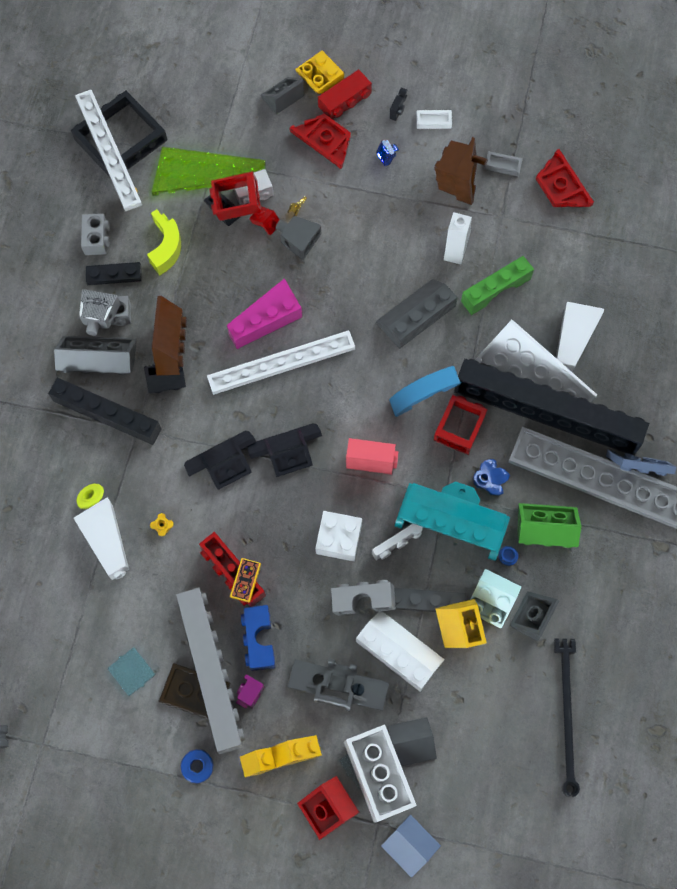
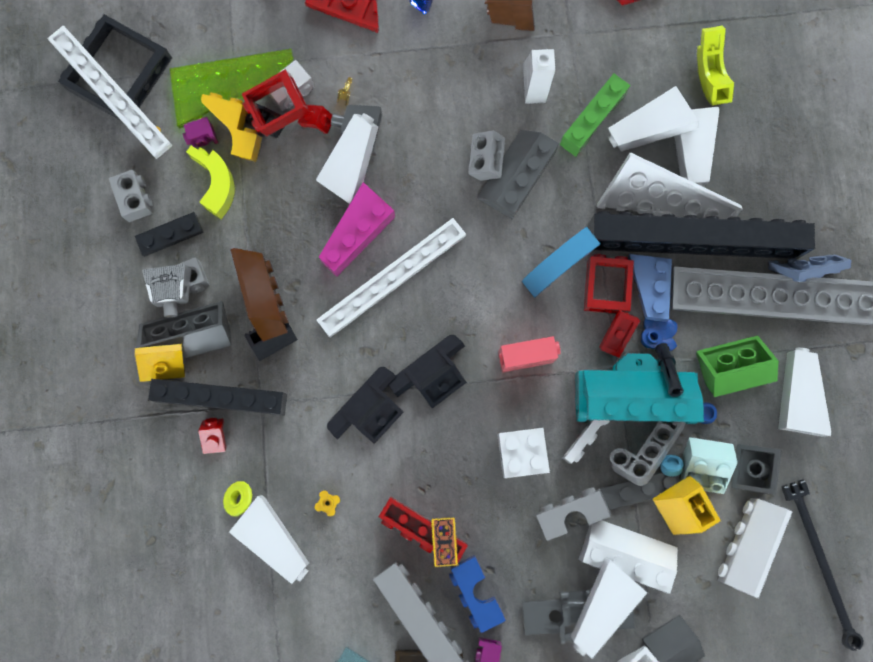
camera: 20 degrees left, 10 degrees up
(69, 366) = (160, 362): none -> yellow plate
(88, 440) = (212, 435): none -> bracket
(167, 202) = (199, 133): none -> magenta brick
(201, 219) = (233, 115): none -> yellow arch
(280, 256) = (350, 158): none -> white slope
(361, 677) = (606, 608): none -> white slope
(394, 289) = (486, 155): none -> light grey brick
(455, 465) = (619, 333): none -> red plate
(462, 588) = (672, 465): none -> medium azure tile
(470, 555) = (641, 461): none -> light grey beam
(485, 500) = (669, 370): none -> black pin
(499, 436) = (653, 284): none -> medium blue wing
(508, 675) = (754, 546): none -> white slope
(545, 303) = (655, 121): none -> white slope
(597, 570) = (803, 395): none -> white slope
(611, 275) = (712, 73): none -> neon yellow arch

